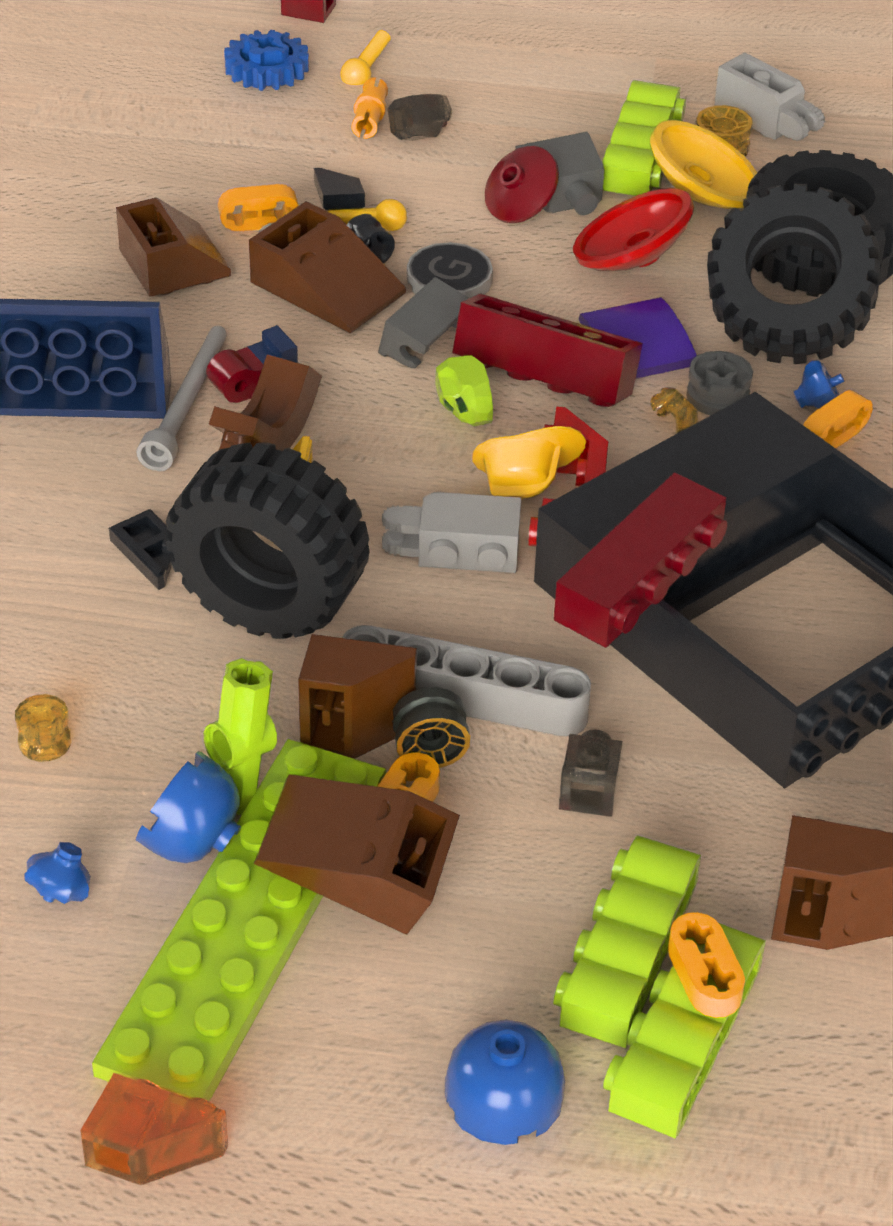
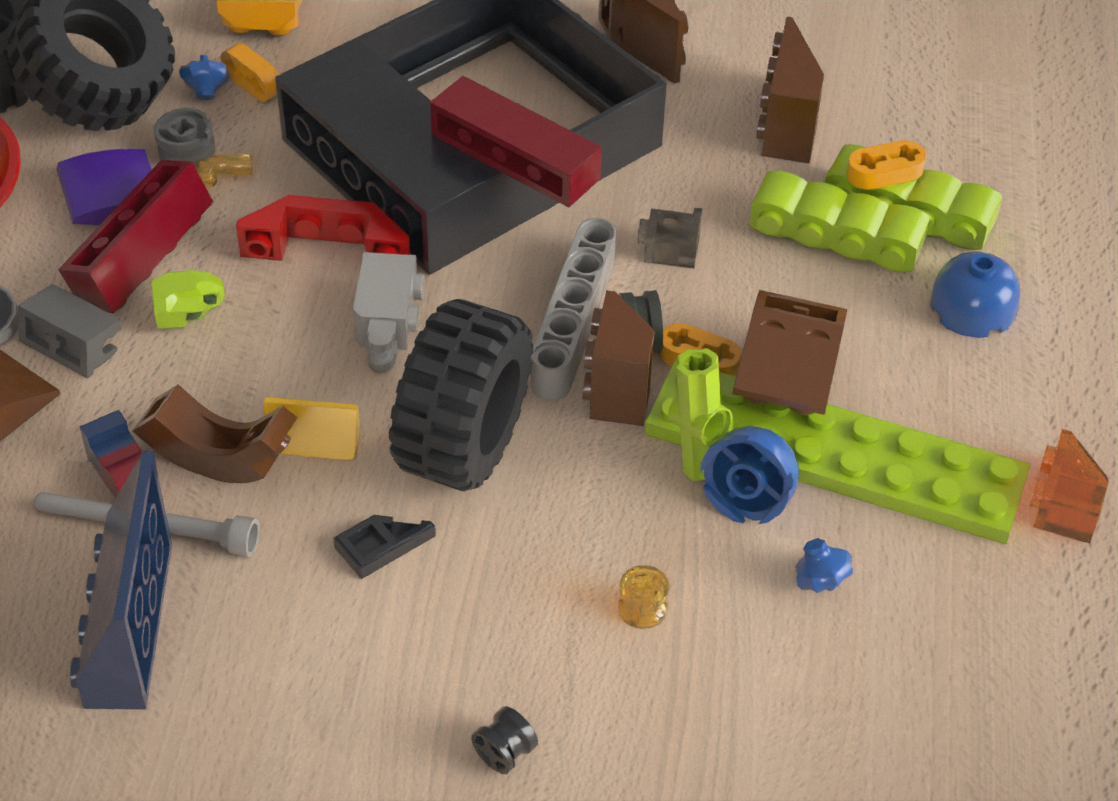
camera: 90 degrees left, 5 degrees up
(528, 461) = (308, 255): yellow piece -> none

